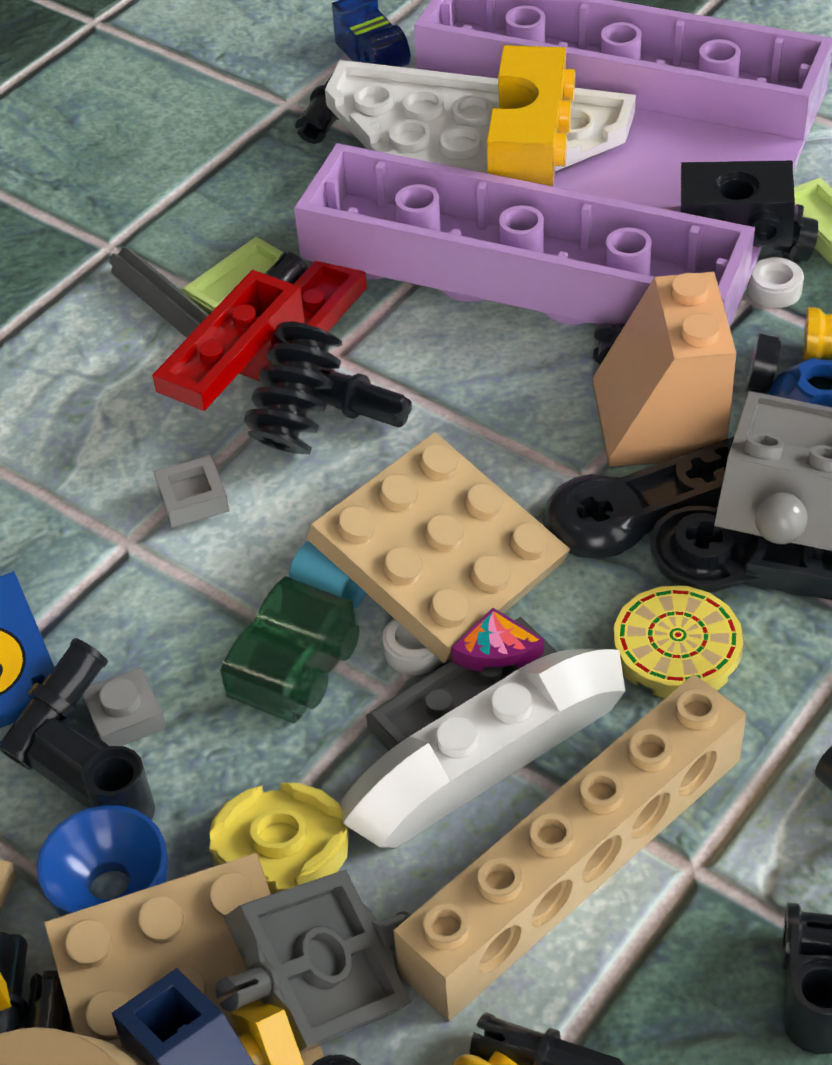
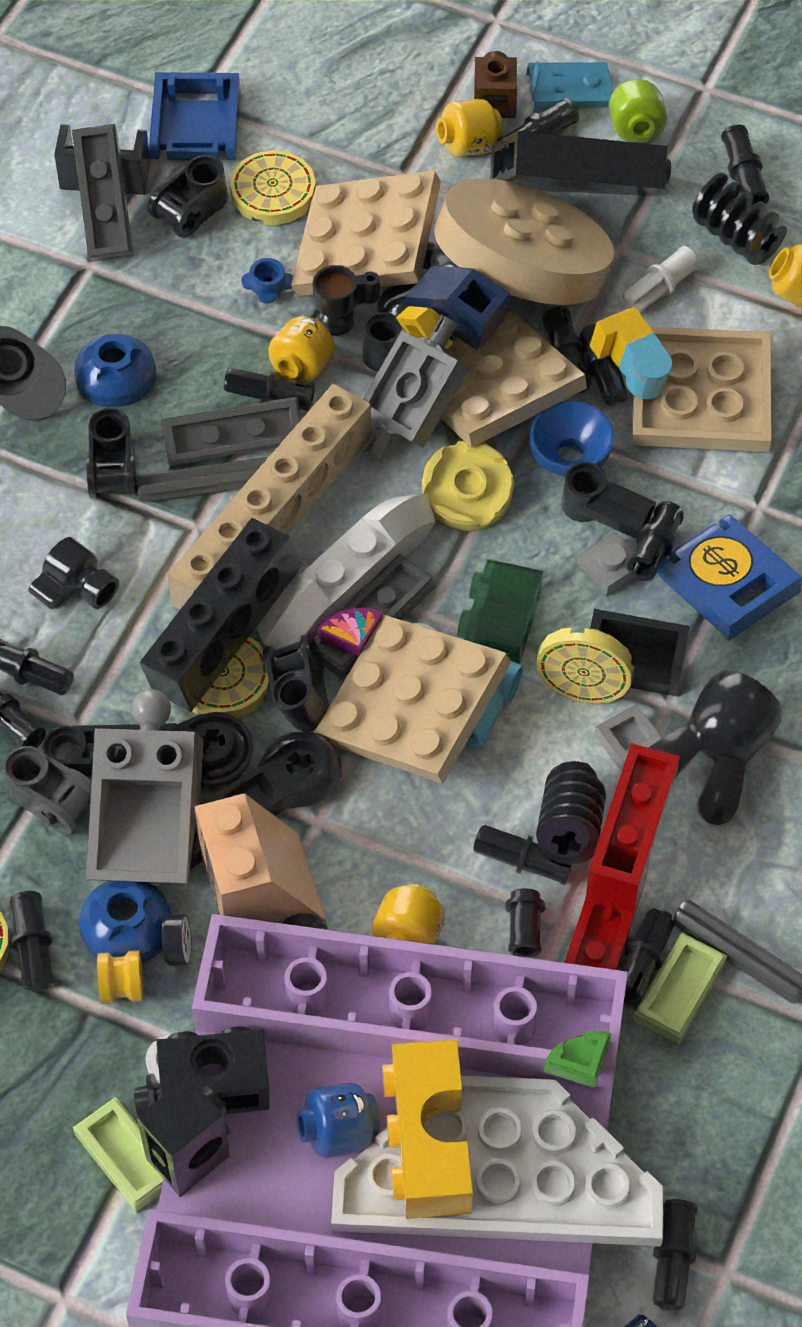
camera: 165 degrees right, 10 degrees up
(83, 462) = (729, 726): none -> black piece
(138, 579) = (655, 648): none -> black panel
(216, 533) = (585, 665): none -> light yellow tile
(368, 143) = (580, 1058): none -> bright green tile
(373, 348) = (525, 910): none -> black pin
(503, 342) = (409, 915): none -> yellow head
(585, 592) = (297, 675): none -> black piece
(614, 160) = (338, 1120): none -> blue head
(620, 988) = (229, 430): none -> dark grey tile
(675, 924) = (196, 480): none -> dark grey axle
(685, 634) = (221, 614): none -> black brick
(774, 123) = (185, 1135): none -> black brick

